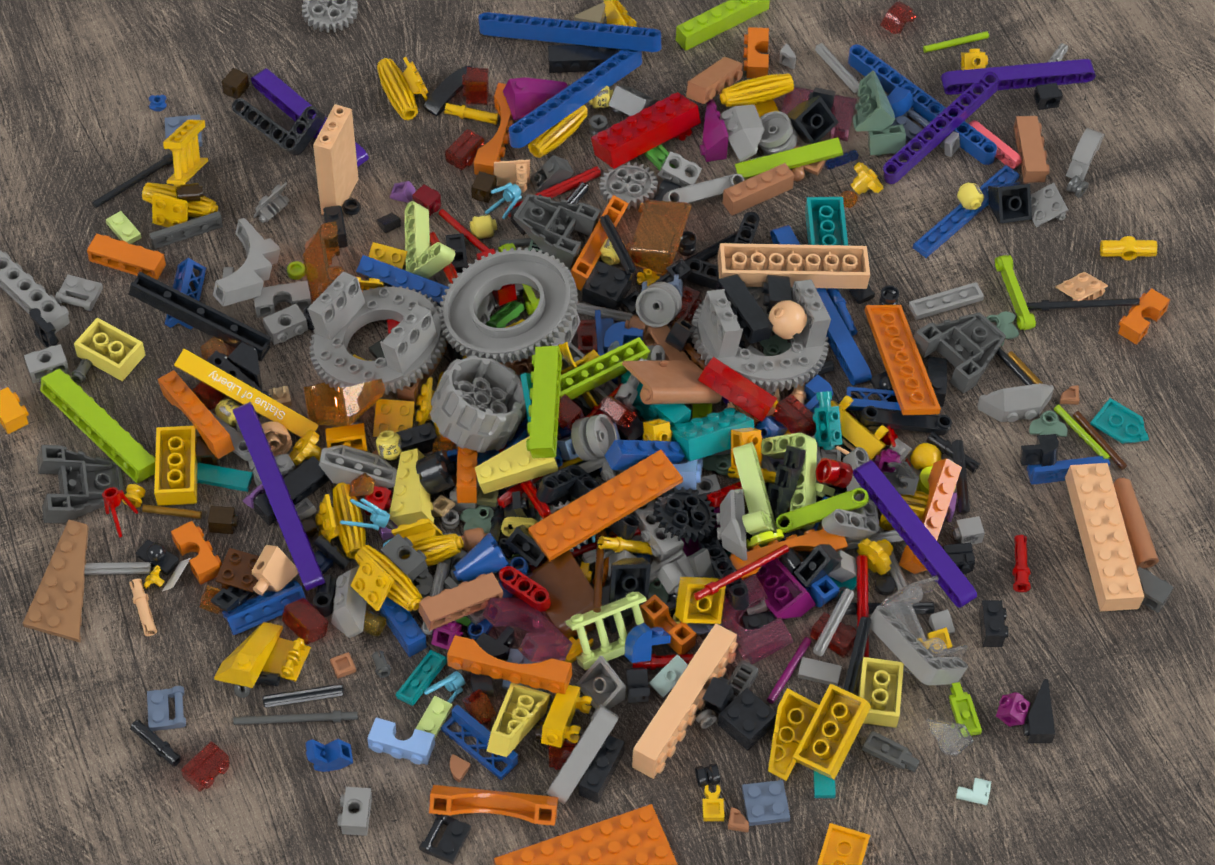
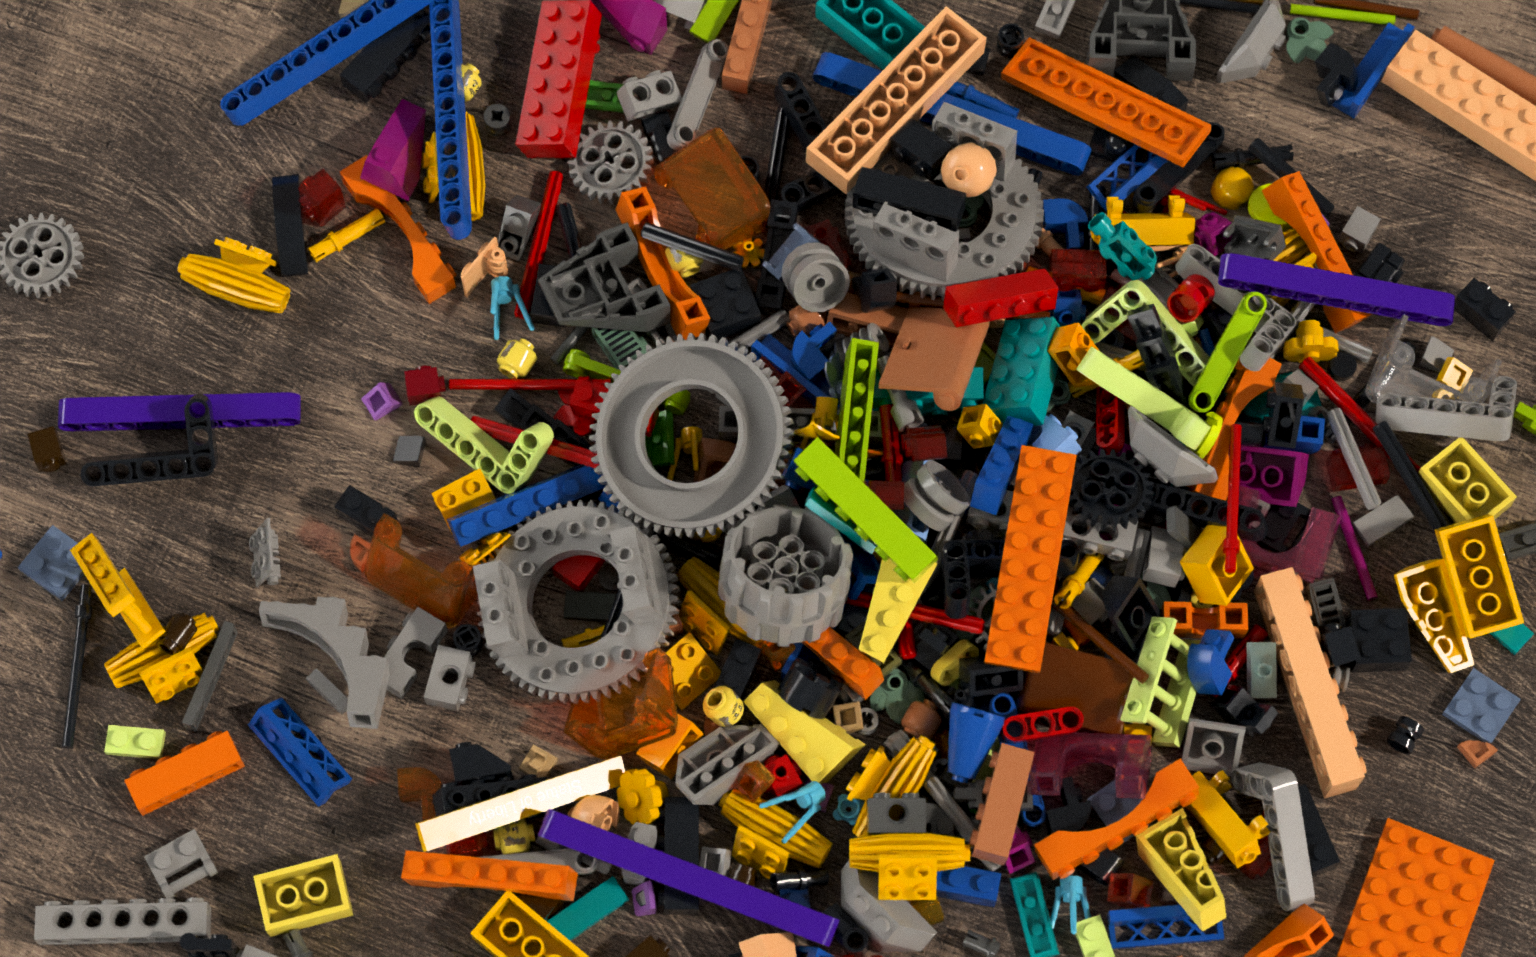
camera: 45 degrees left, 15 degrees up
(198, 314) = (356, 763): black tile -> none
(296, 270) = (379, 604): lime tile -> none
(336, 158) = (301, 426): light nougat brick -> none
(351, 206) = (351, 472): black plate -> none
(464, 149) = (392, 285): clear red brick -> none
(482, 187) = (464, 312): dark brown brick -> none
(629, 100) = (501, 57): slope -> none
(712, 807) = (1444, 762): yellow plate -> none
(902, 449) = (1207, 200): light grey tile -> none
(1021, 570) = (1447, 224): red pin -> none

